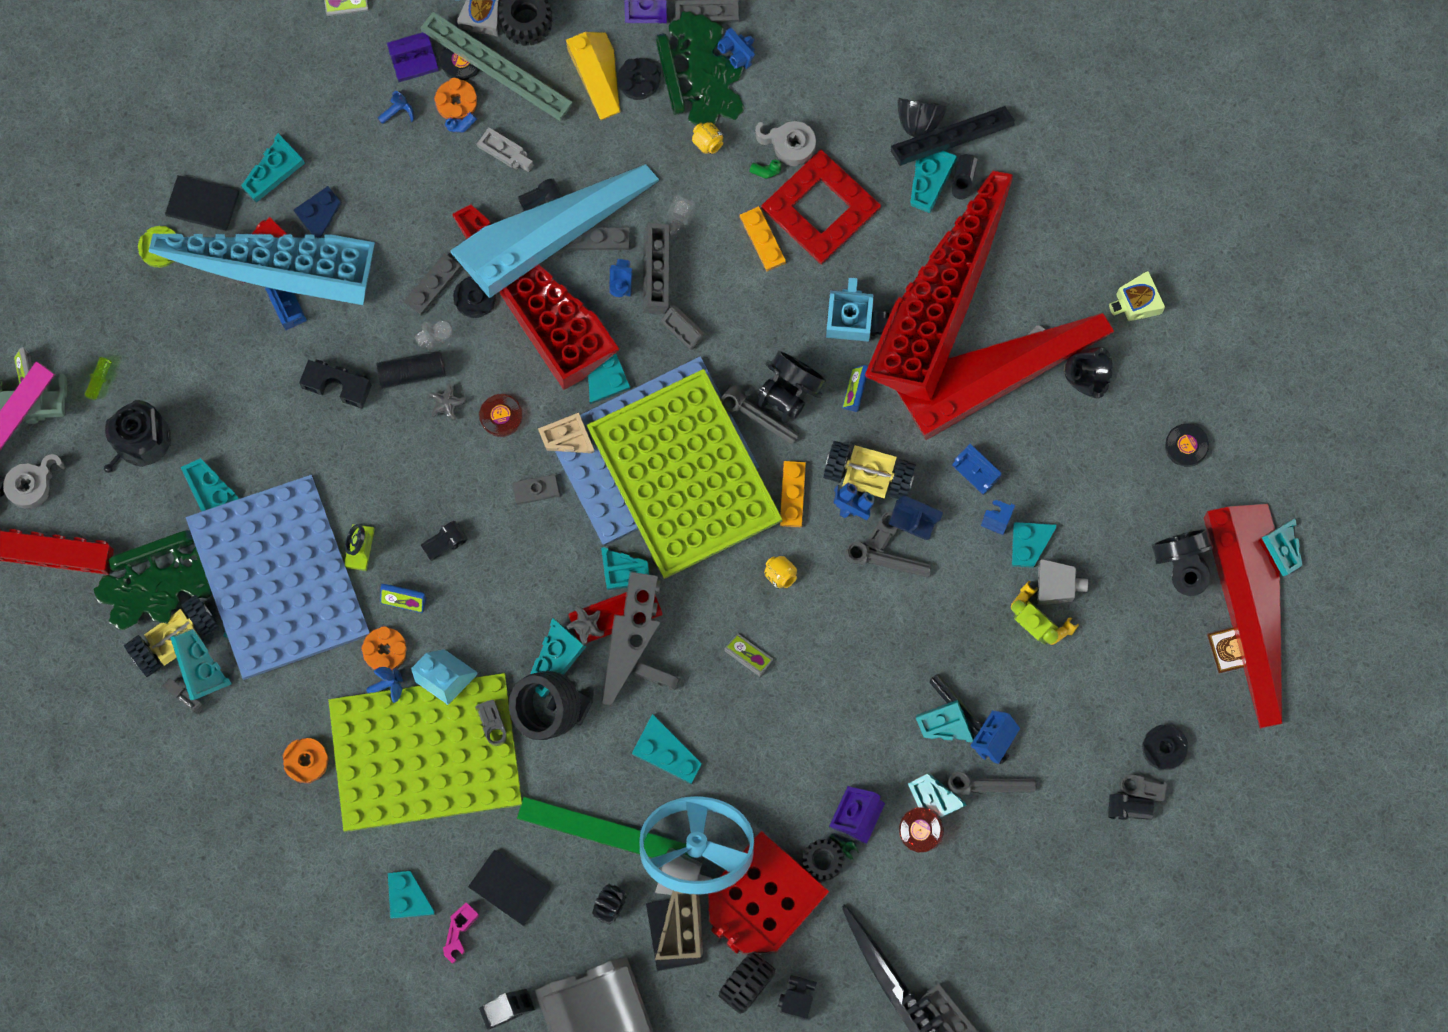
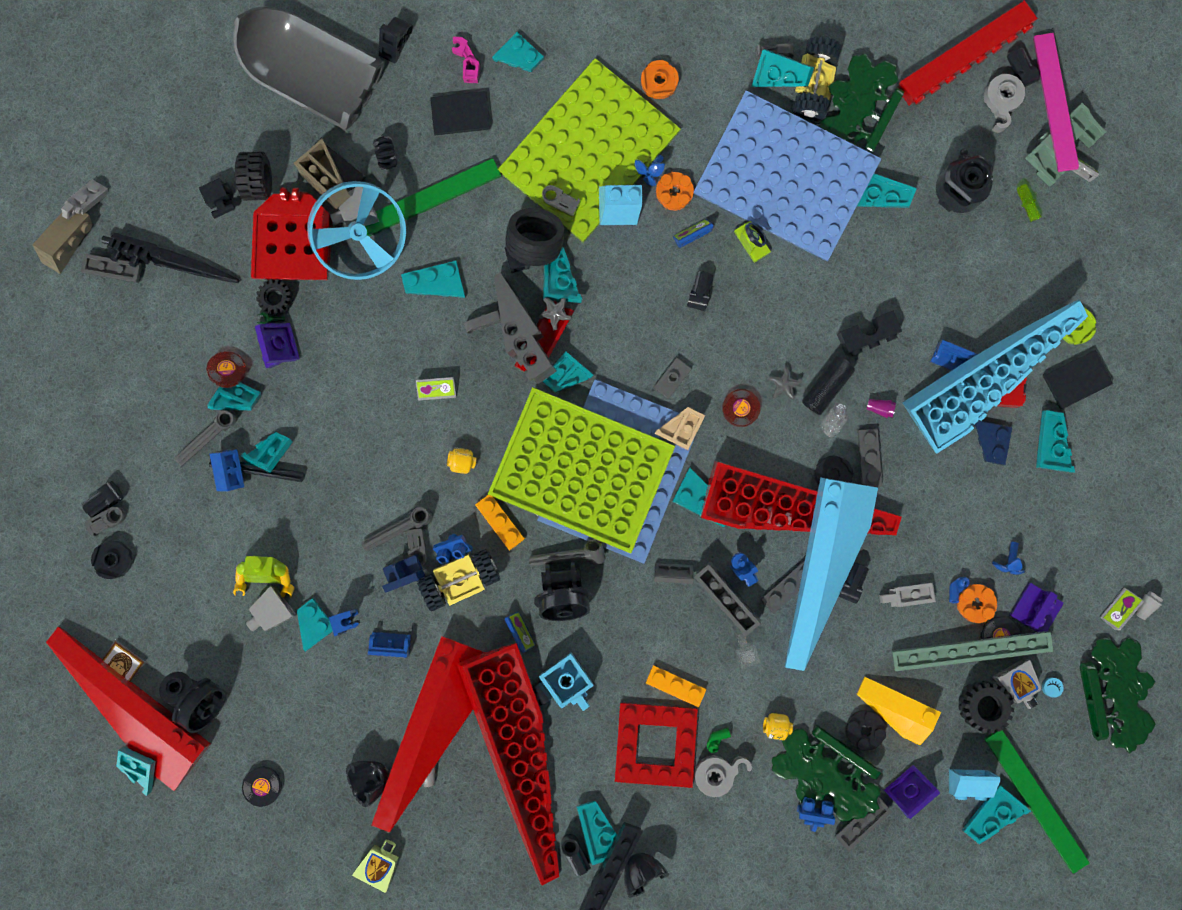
camera: 140 degrees right, 10 degrees up
(382, 314) = (882, 407): none -> magenta cone

